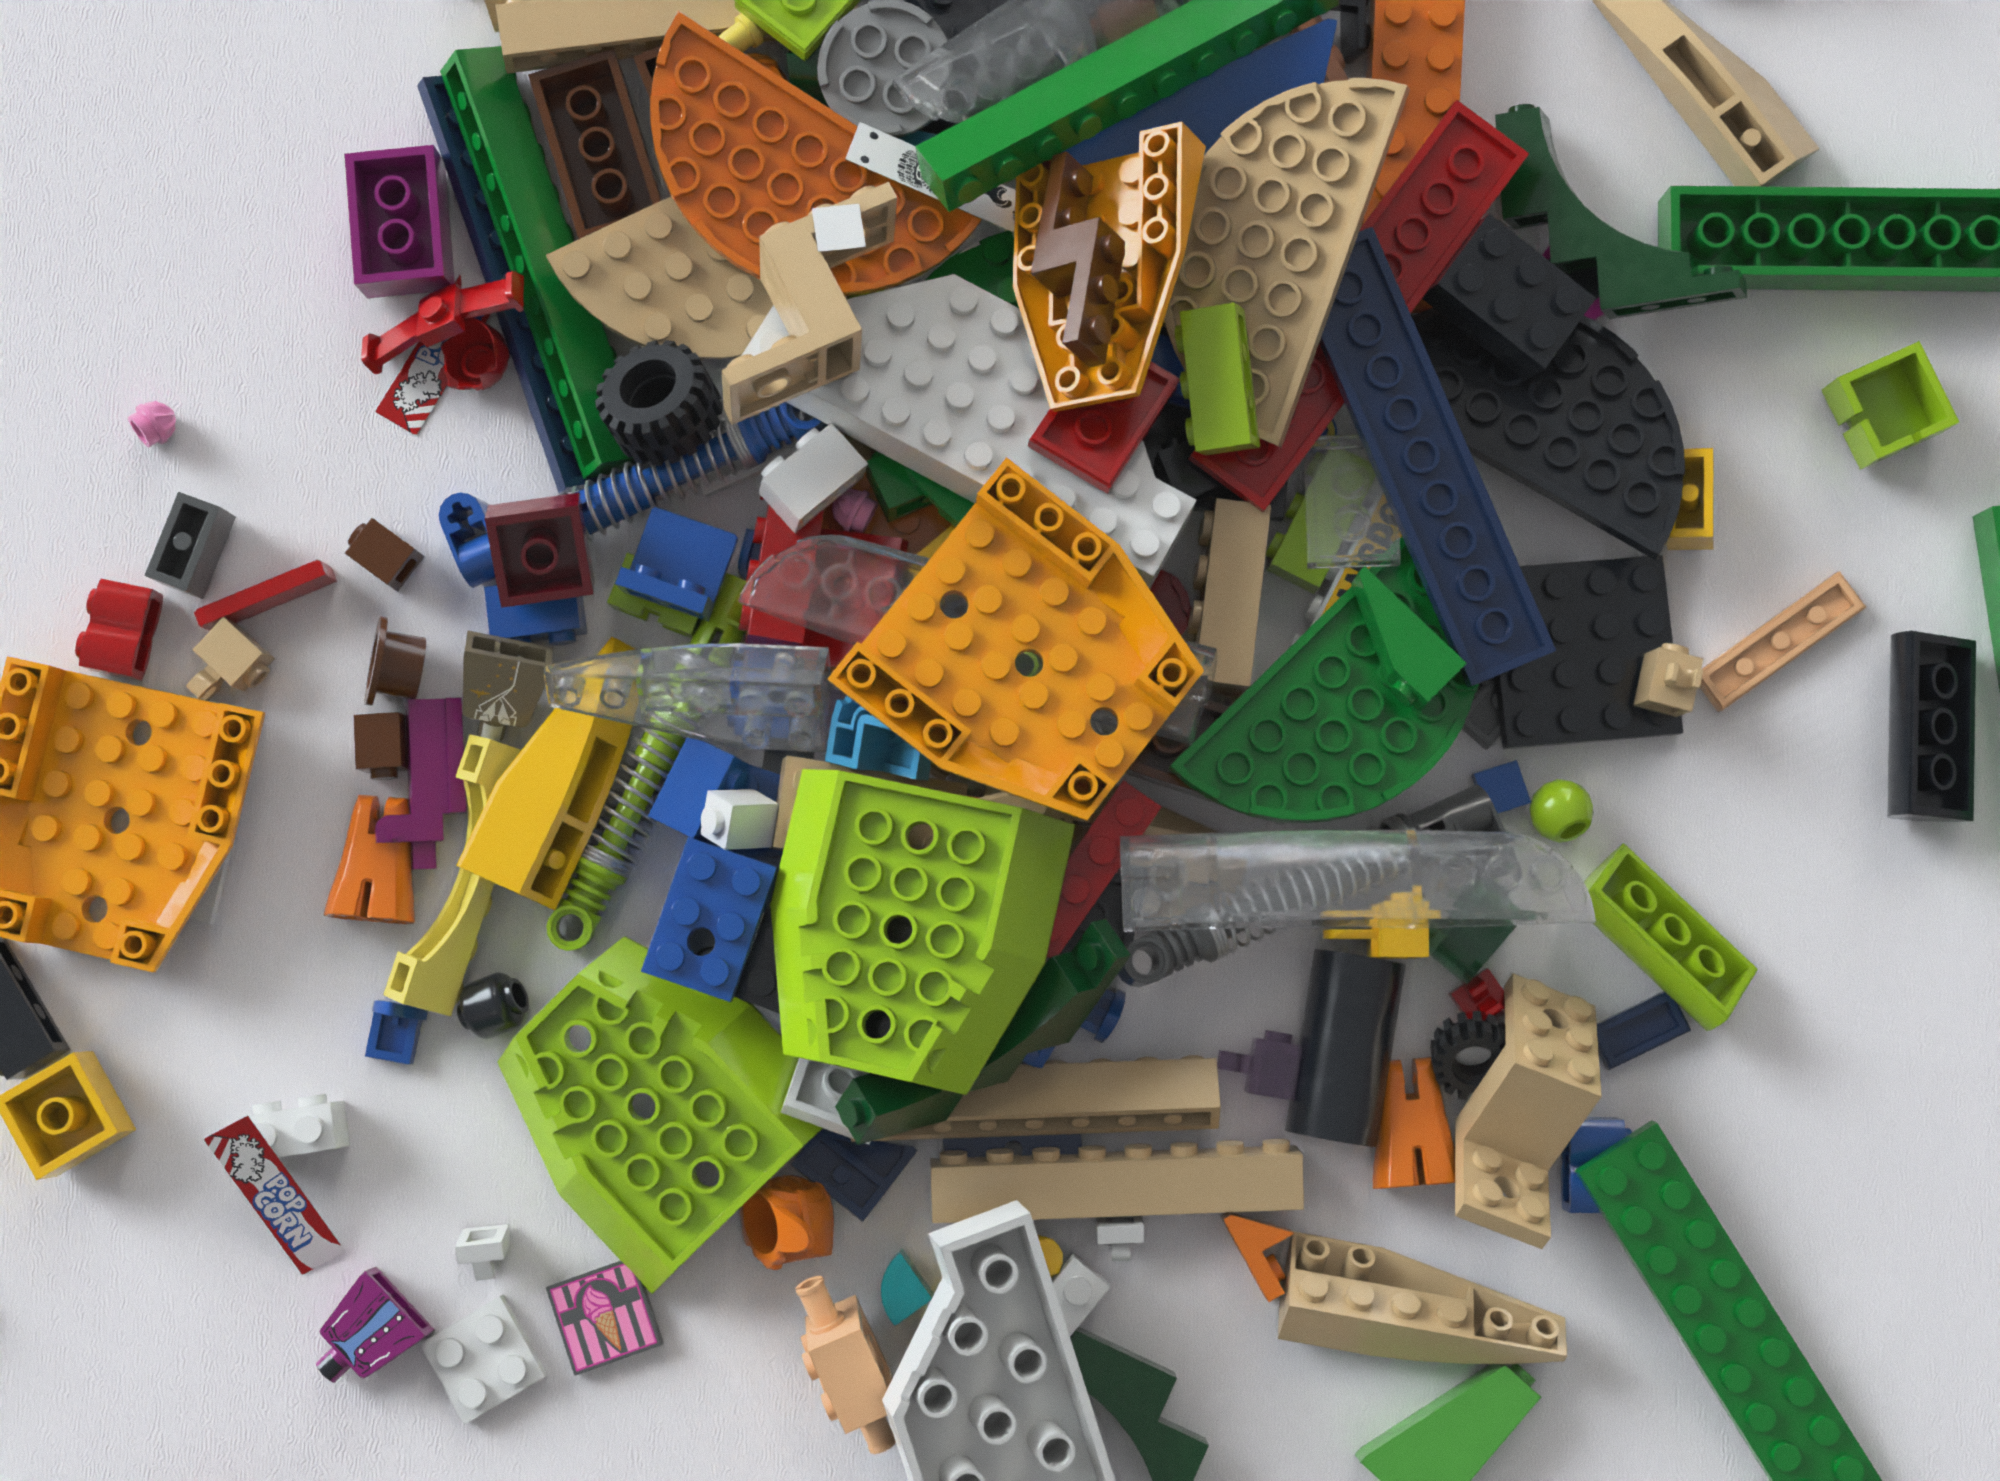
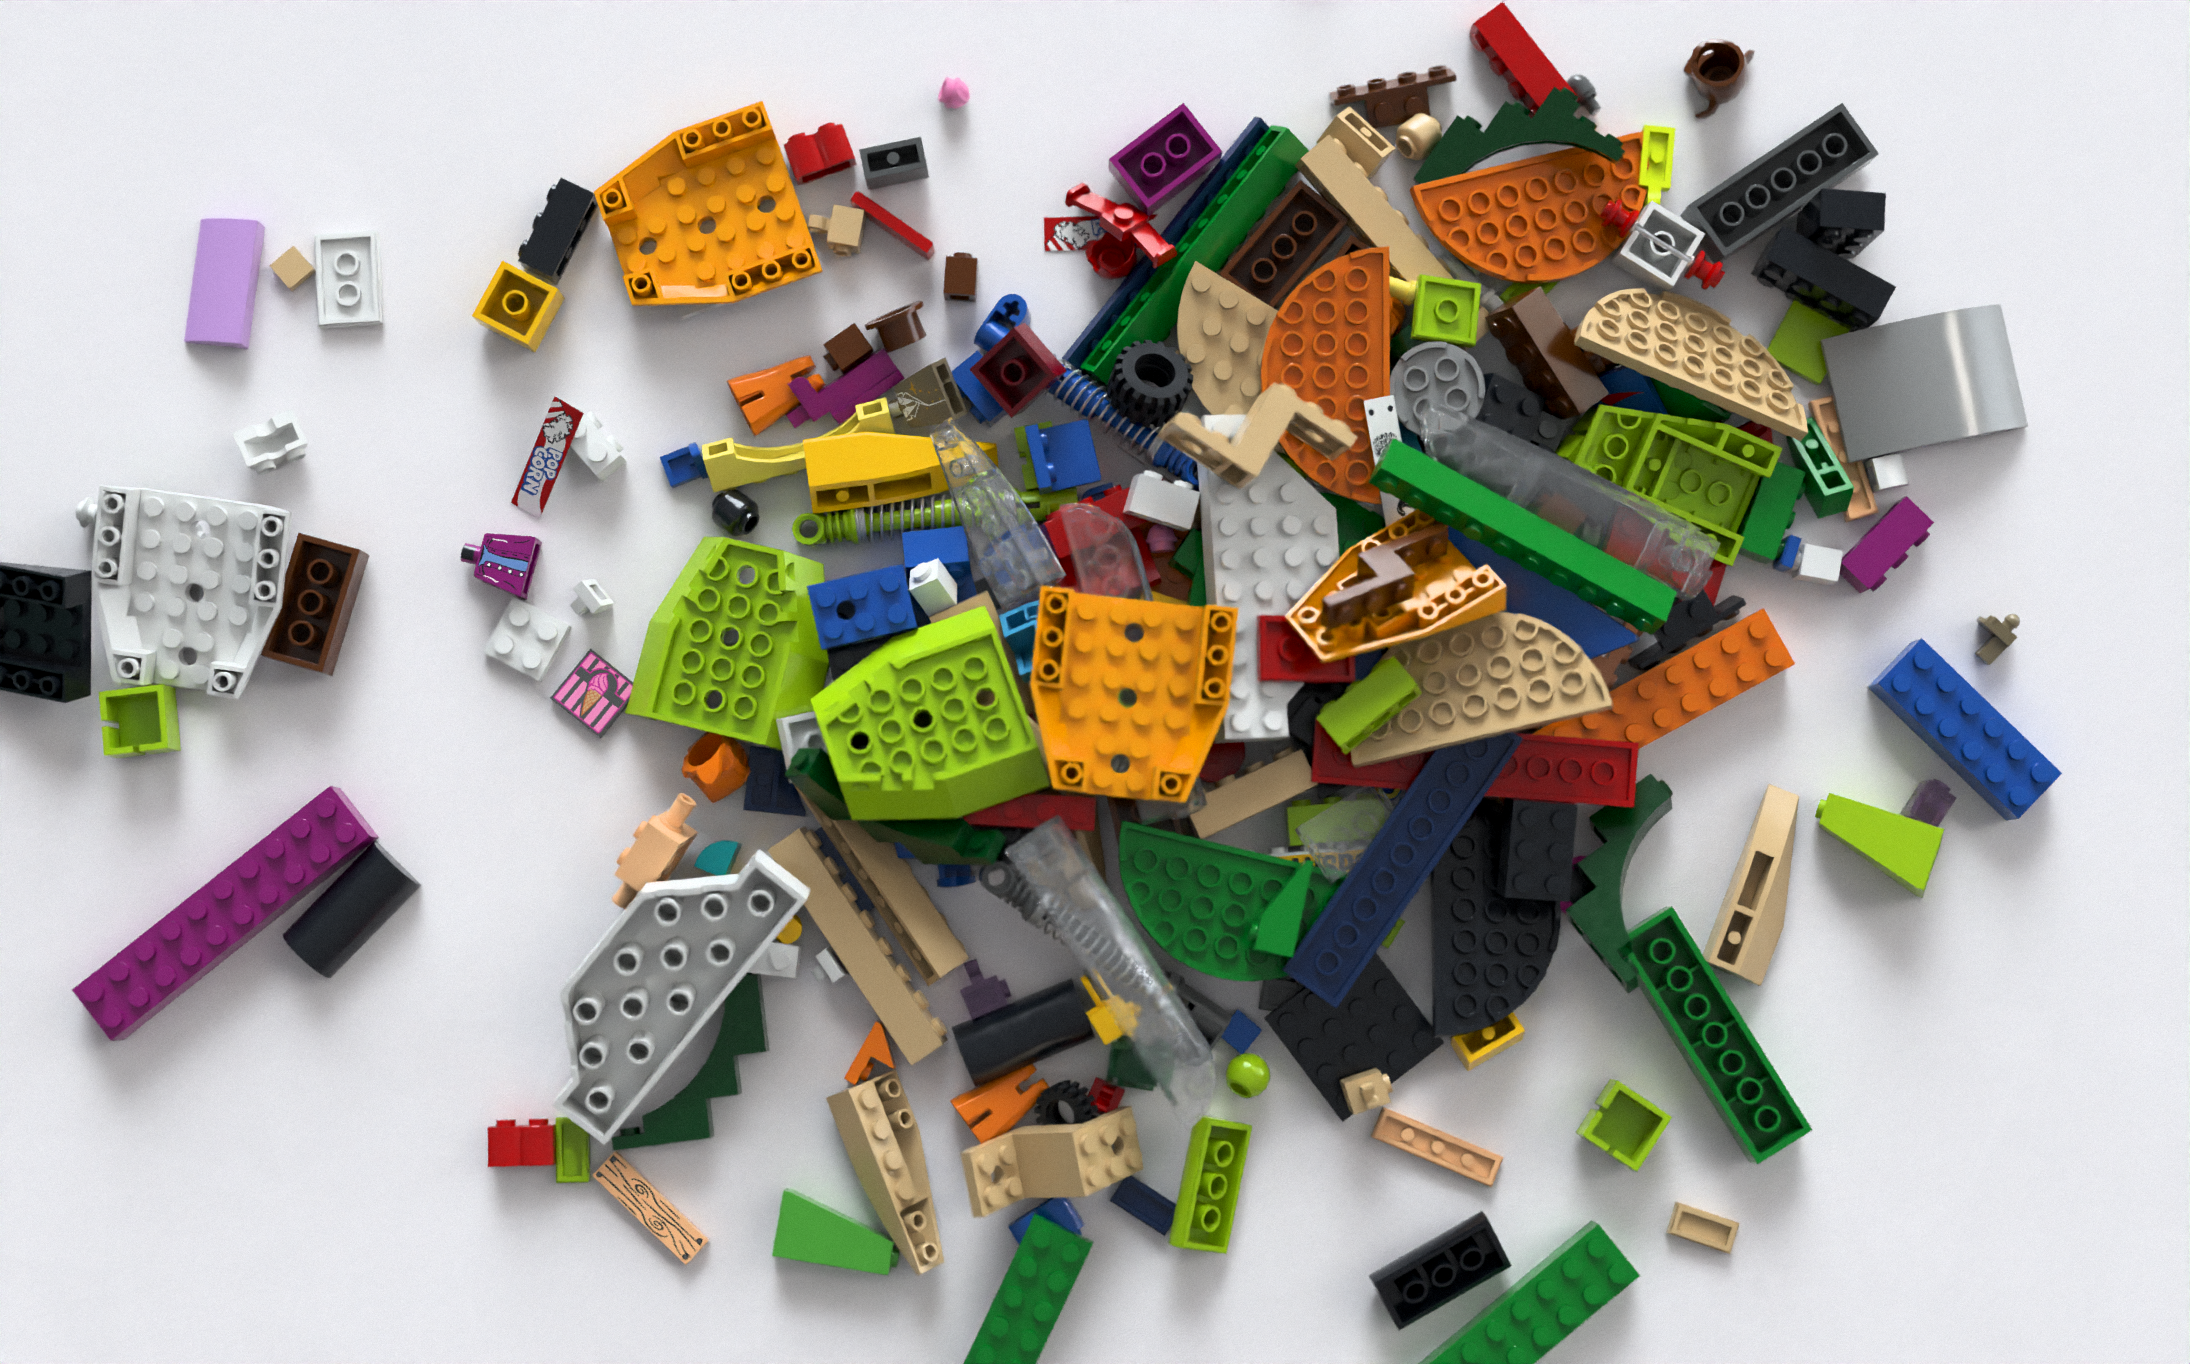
camera: 50 degrees right, 0 degrees up
(838, 227) = (1309, 425): white sticker -> none

